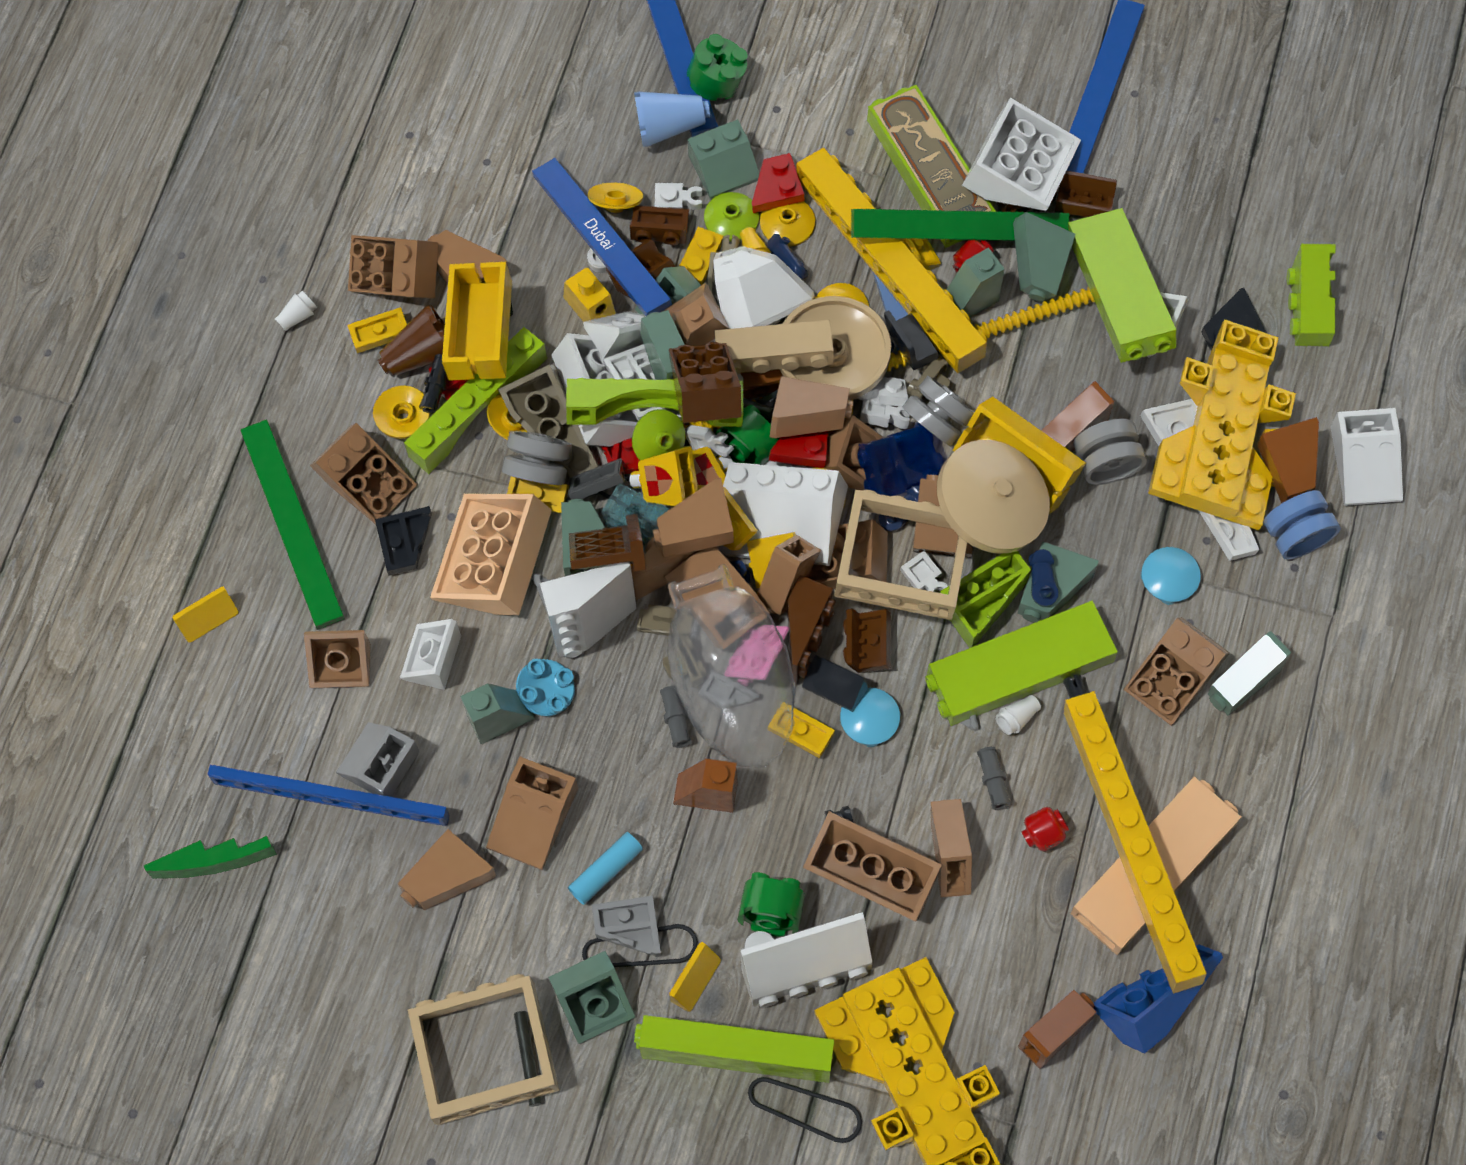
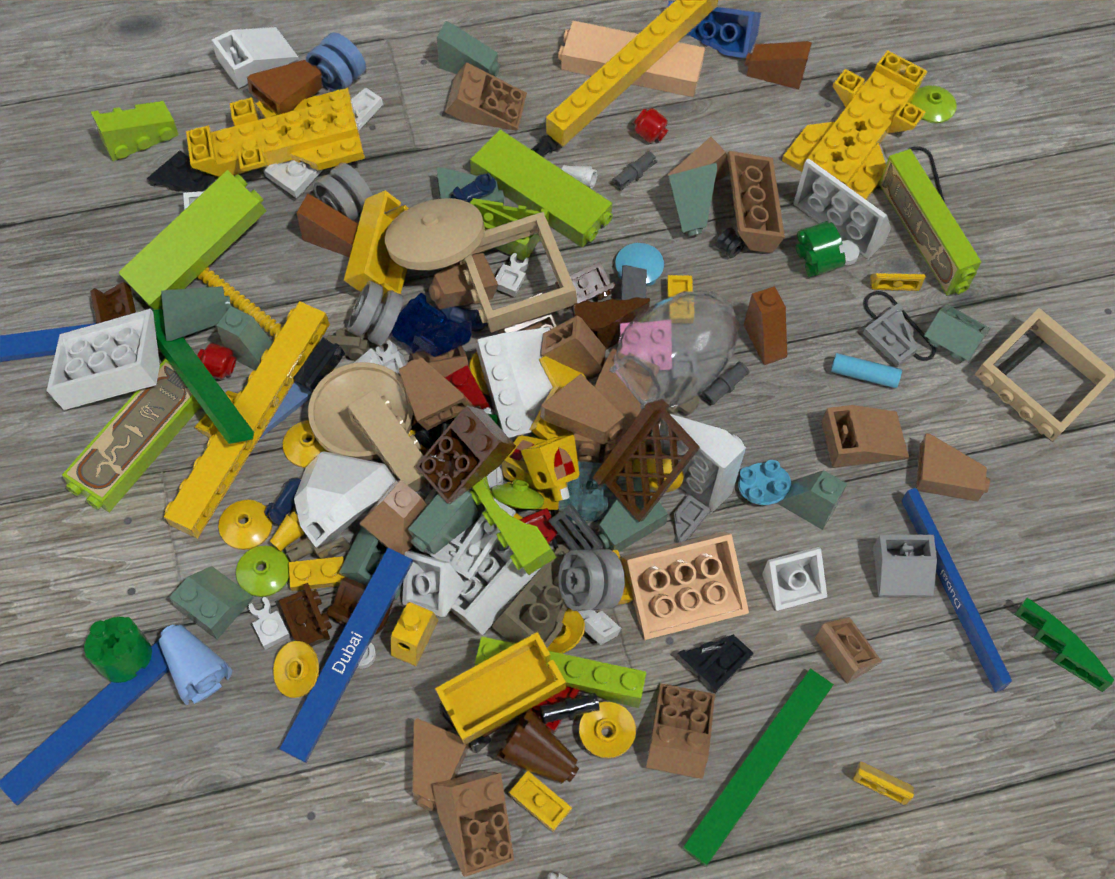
camera: 125 degrees left, 5 degrees down
(493, 456) = (599, 626): none -> white plate
(777, 184) = (213, 545): red wing -> none
(911, 801) = (693, 197): none -> sand green slope
(1170, 574) = (414, 134): medium azure dish -> none

